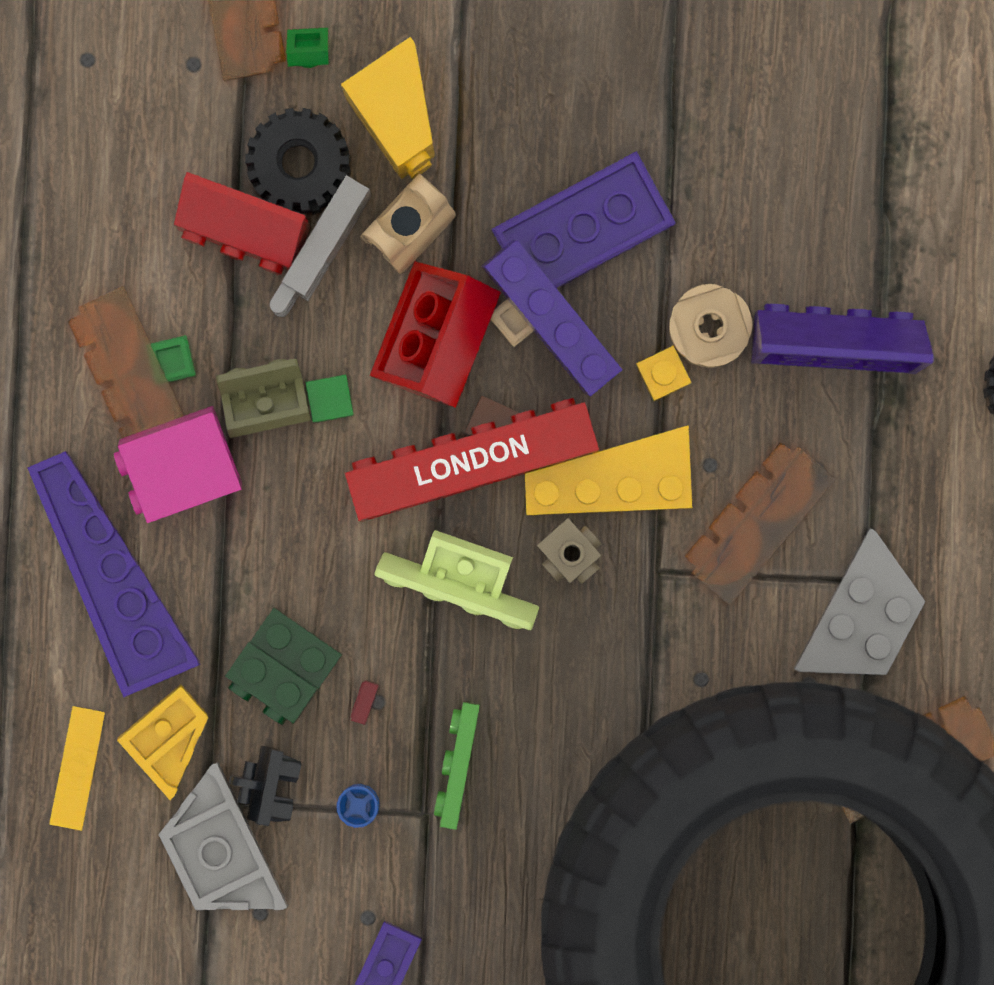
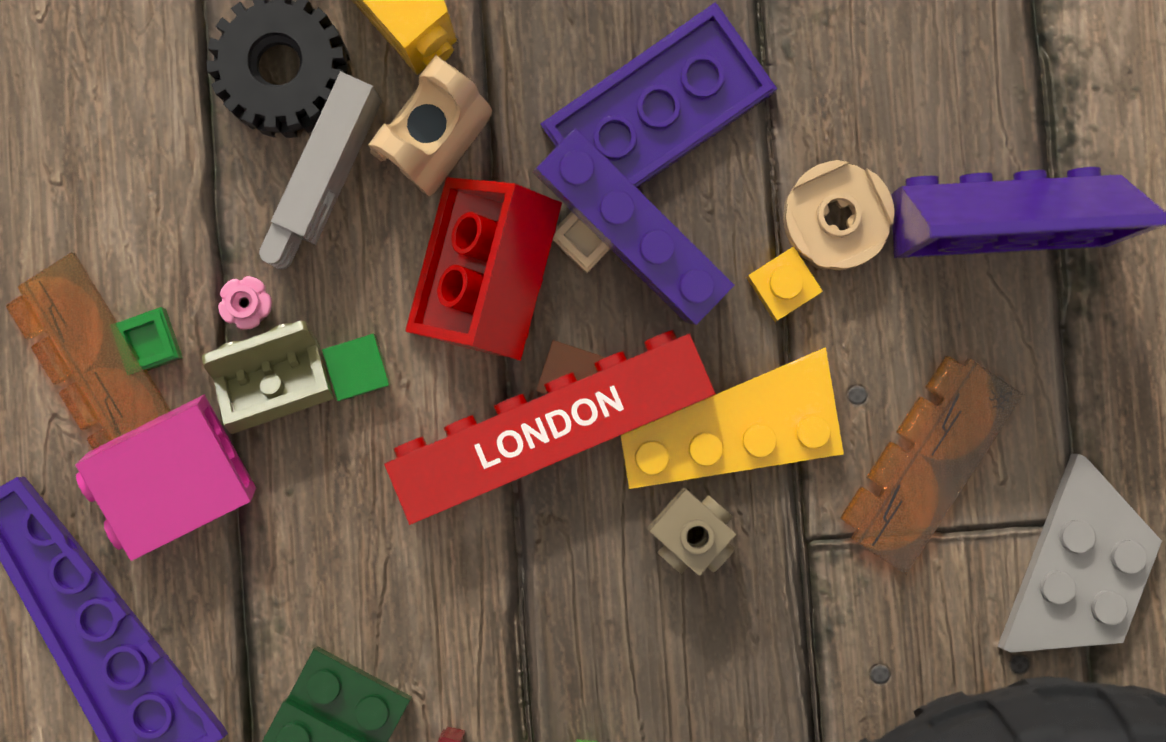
camera: 10 degrees left, 0 degrees up
(240, 224) = (207, 150): red slope -> none
(253, 350) = (259, 302): none -> bright pink plate
(463, 576) = (556, 581): yellowish green bracket -> none

